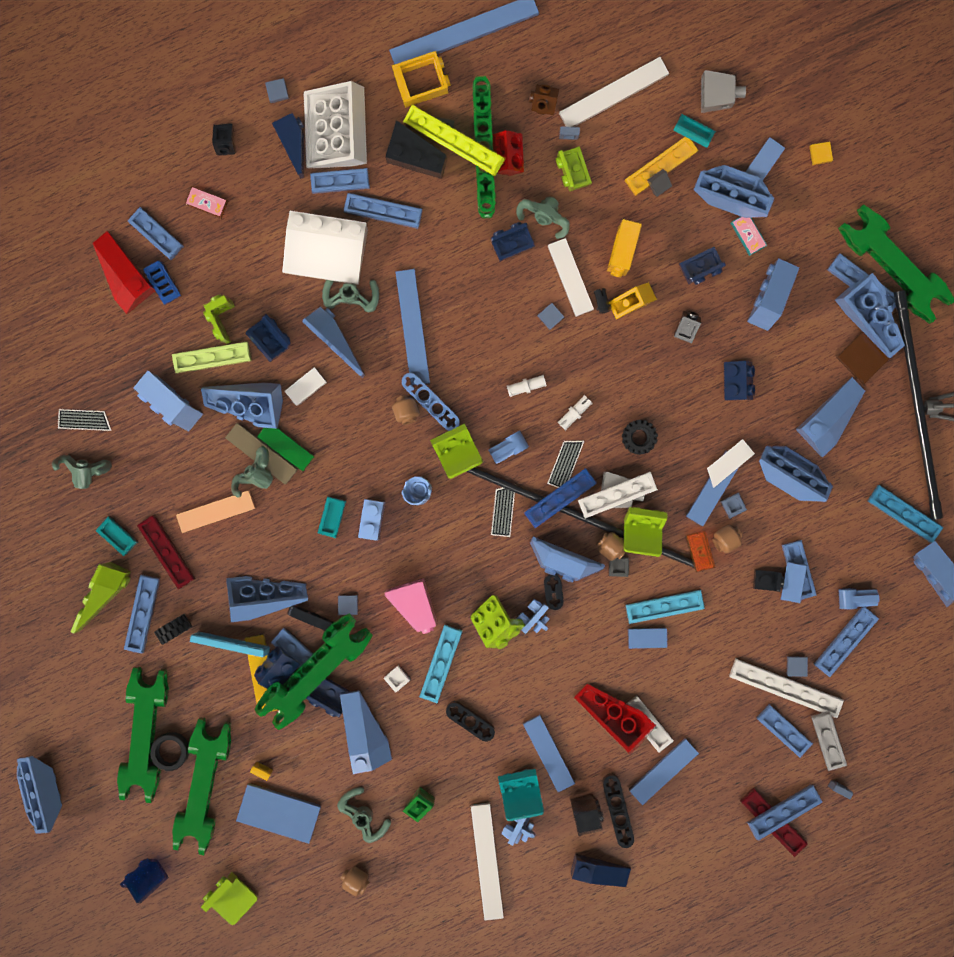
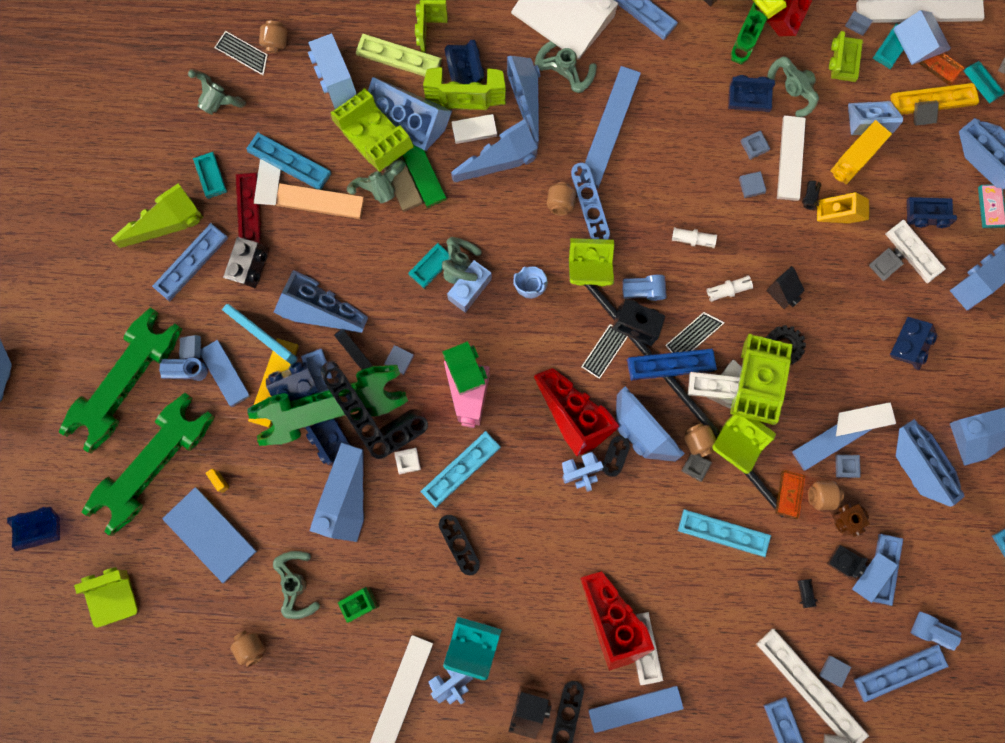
camera: 30 degrees right, 10 degrees down
(101, 396) = (273, 36): none -> medium nougat head
(161, 763) = (125, 399): black tyre -> none
(165, 517) = (267, 184): none -> white sticker
(172, 492) = (288, 161): none -> dark azure tile
(173, 629) = (212, 289): black tyre -> none
(181, 681) = (190, 347): none -> sand blue tile
(185, 701) = (182, 369): none -> medium blue piece
(186, 593) = (246, 262): none -> bracket
(219, 686) = (224, 373): none -> medium blue tile
(225, 435) = (371, 130): none -> lime plate
(256, 372) = (464, 96): none -> lime plate
(345, 391) = (509, 152): none -> medium blue wedge
(352, 505) = (458, 261): none -> sand green piece
(369, 671) = (363, 417): none -> black beam
(404, 595) = (464, 368): none -> green brick
(494, 624) = (539, 456): lime bracket -> none
(508, 485) = (627, 324): none -> black brick
(509, 577) = (578, 418): none -> red wedge
(536, 281) = (755, 145): none -> sand blue tile
(548, 753) = (523, 623): medium blue tile -> none
(606, 136) = (889, 50): none -> teal tile
(619, 206) = (864, 114): none -> light blue slope
(620, 391) = (787, 289): none -> black slope
(626, 119) = (921, 37): none -> light blue slope
(635, 478) = (762, 379): none -> lime plate
(647, 638) = (689, 556): medium blue tile -> none
(652, 132) = (943, 67): none -> clear orange tile
(705, 304) = (915, 251): none -> white tile
(749, 544) = (844, 522): none -> reddish brown brick
(749, 620) = (807, 593): none -> black pin

